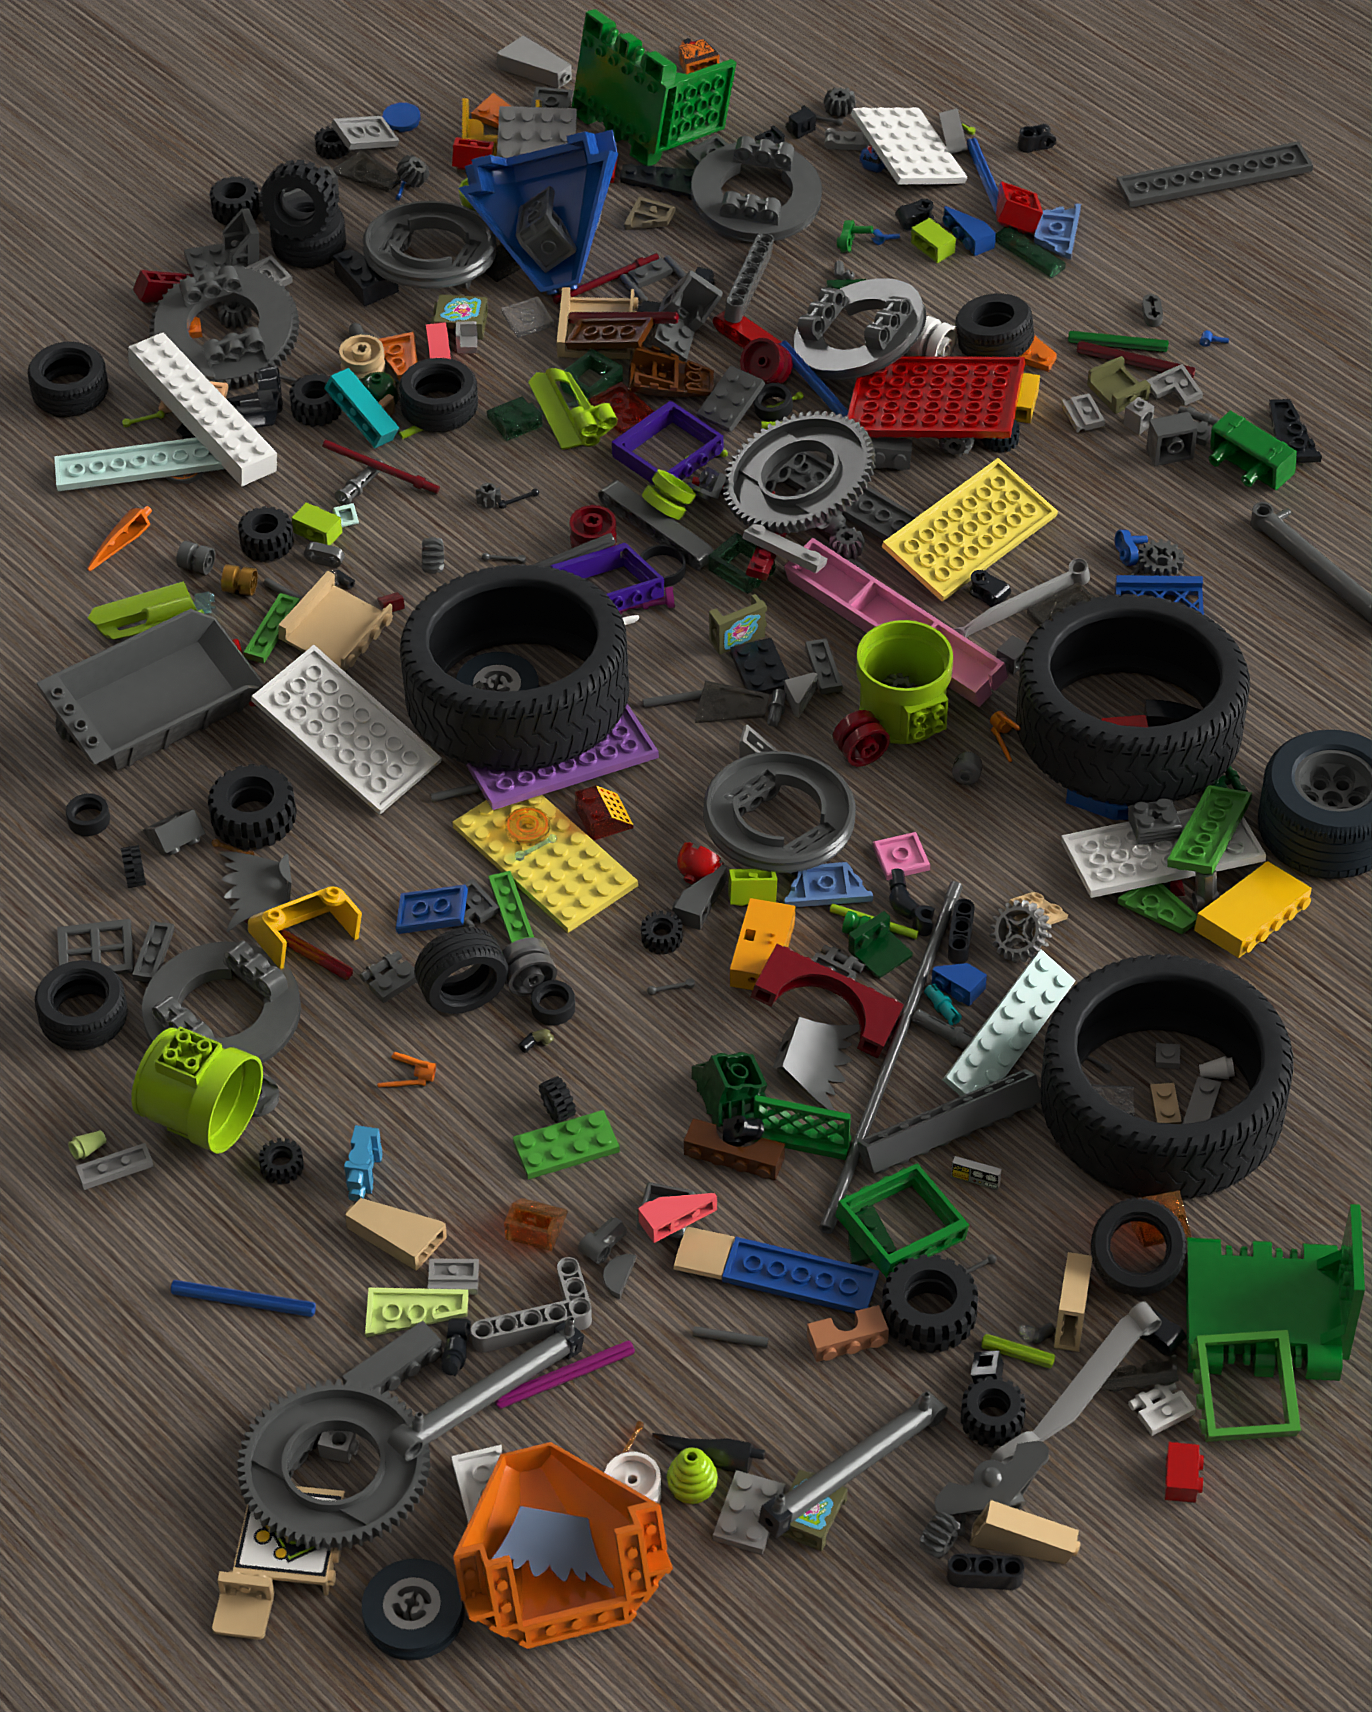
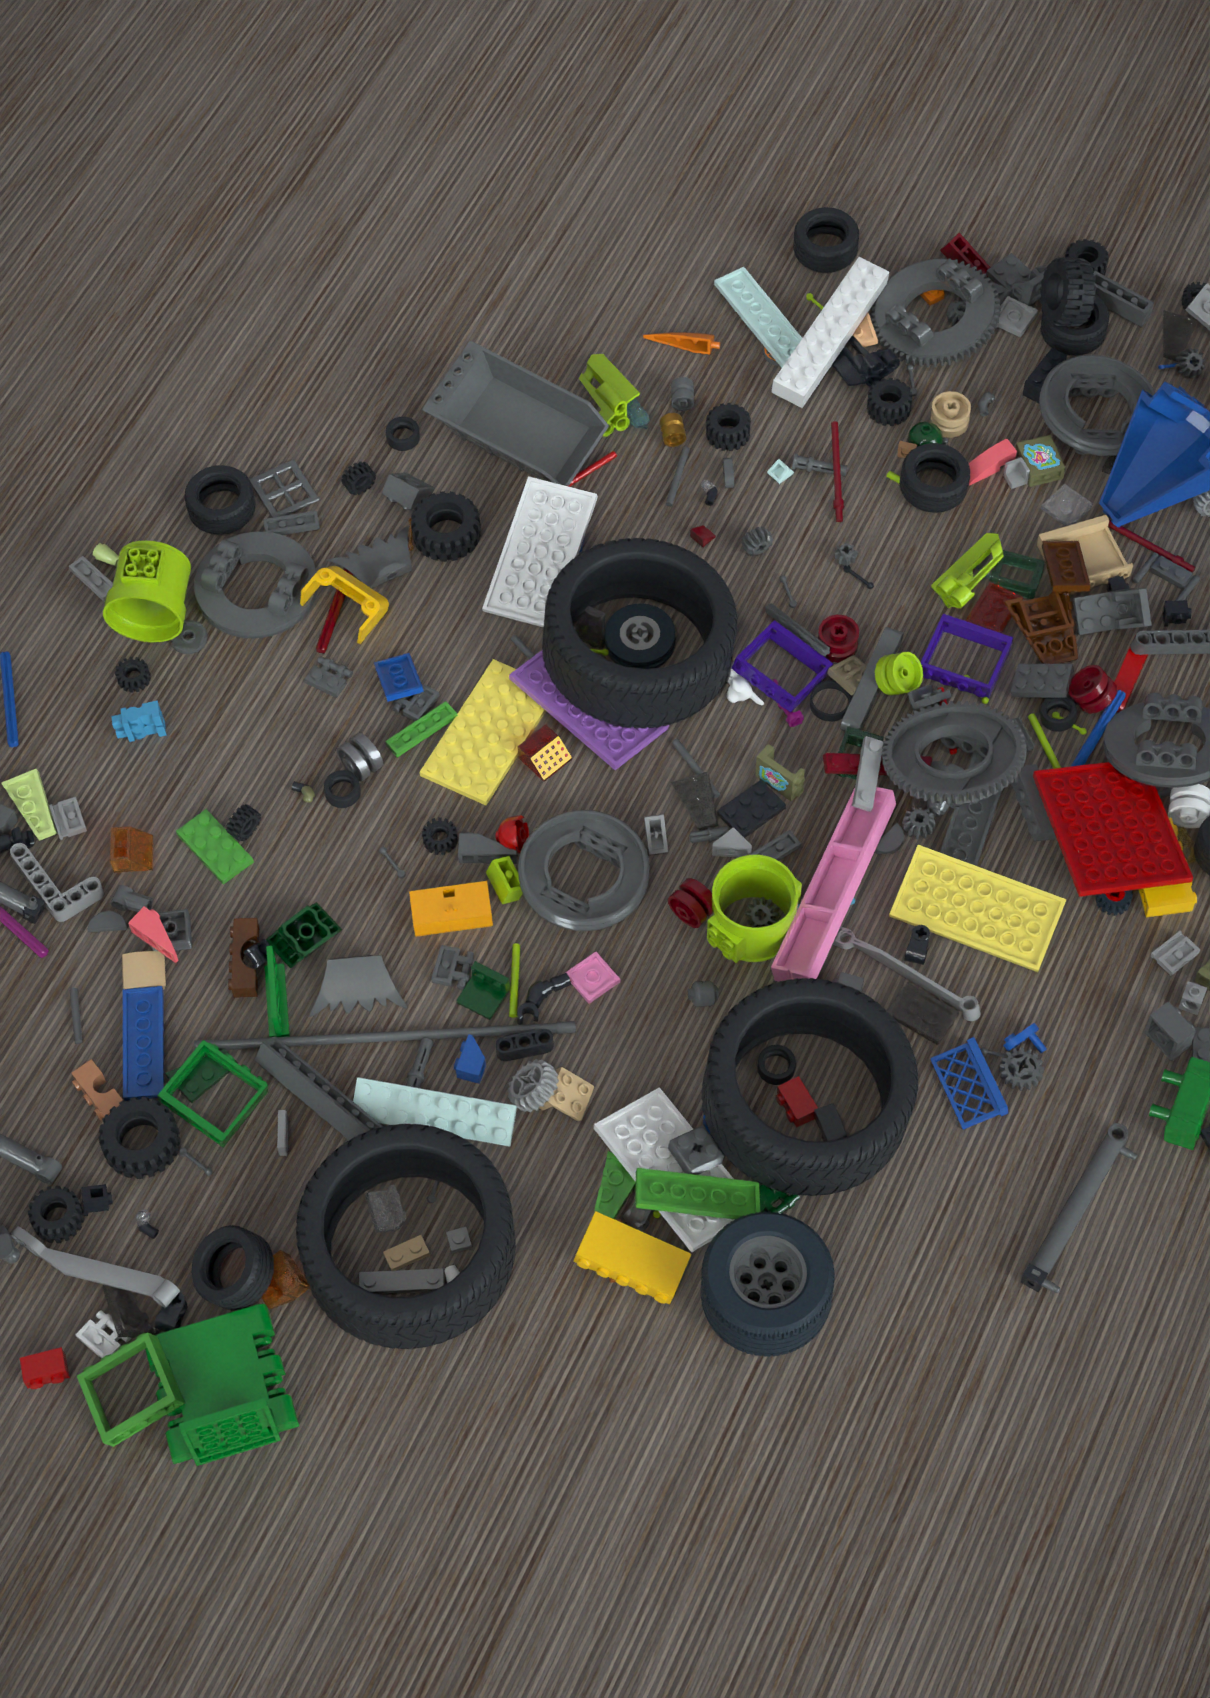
camera: 70 degrees right, 10 degrees up
(268, 632) = (636, 470): bright green plate -> none
(316, 524) = (756, 456): lime brick -> none
(334, 623) = (658, 506): tan panel -> none
(361, 408) = (888, 431): teal brick -> none
(397, 1232) = (92, 769): tan slope -> none
(400, 352) = (976, 437): orange wing -> none
(423, 1070) = (246, 730): orange plant -> none
(452, 952) = (326, 712): black tyre -> none
(515, 418) = (945, 541): clear green plate -> none
(519, 855) = (472, 713): clear light blue hinge -> none
(524, 816) = (499, 698): clear yellow tile -> none
(543, 232) = (1138, 478): dark grey bracket -> none
(641, 537) = (848, 673): none -> dark tan wing
(658, 317) = (1095, 589): dark red axle -> none
(790, 970) = (410, 1011): dark red arch -> none
(827, 885) = (535, 935): medium blue wing -> none
(853, 921) = (501, 964): green wheel -> none
(942, 1004) = (444, 1056): teal pin -> none
(1018, 1351) = (125, 1217): lime axle -> none
(1073, 1302) = (174, 1239): tan slope -> none

